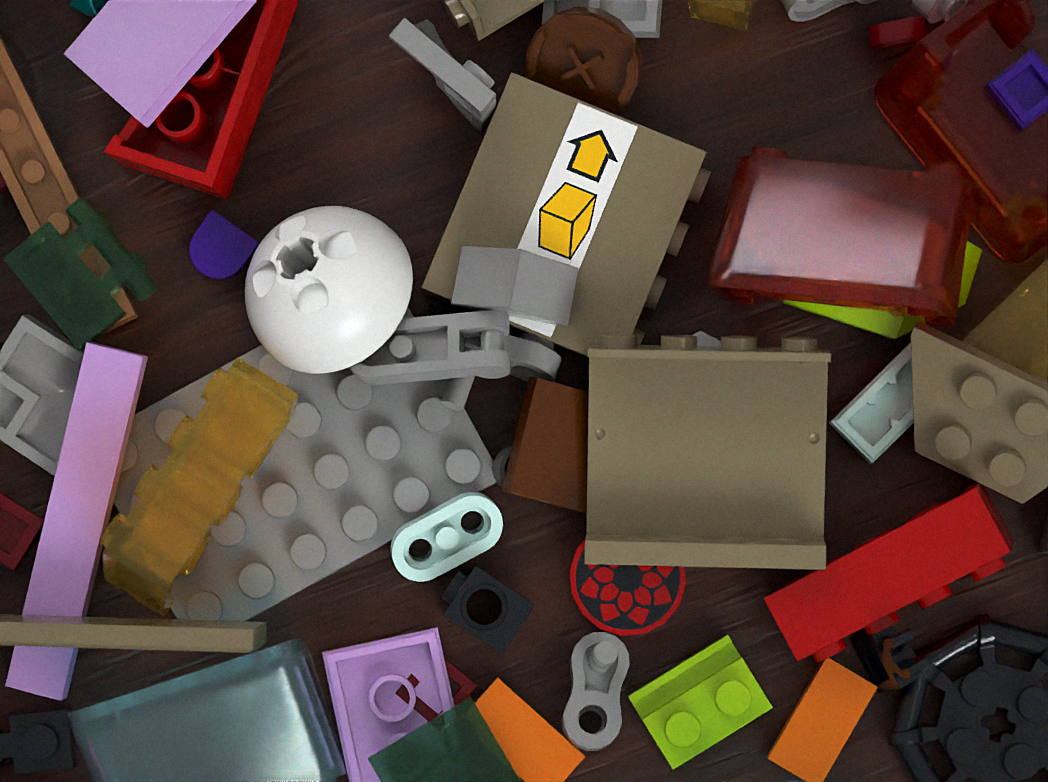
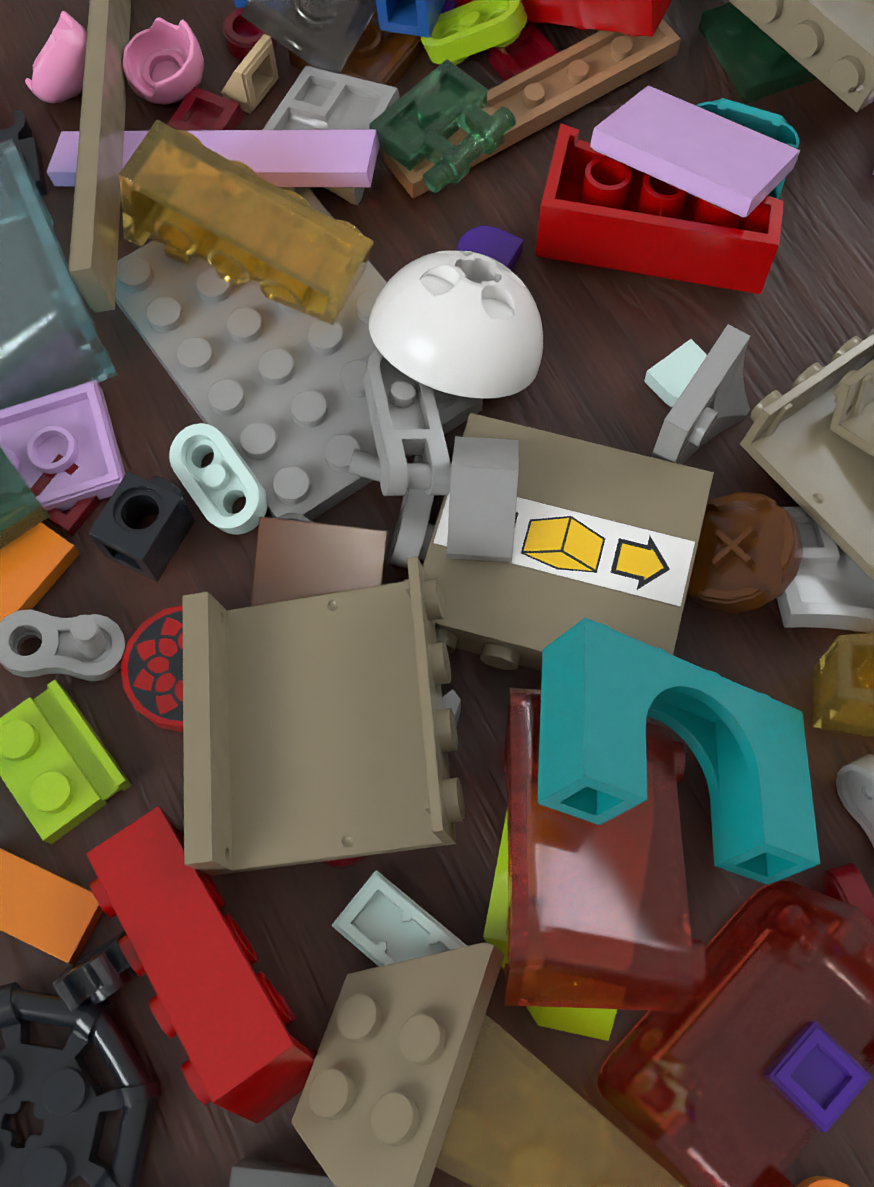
camera: 90 degrees right, 15 degrees down
(386, 75) = (675, 371): none -> light aqua tile
(762, 96) = (748, 745): none -> teal arch

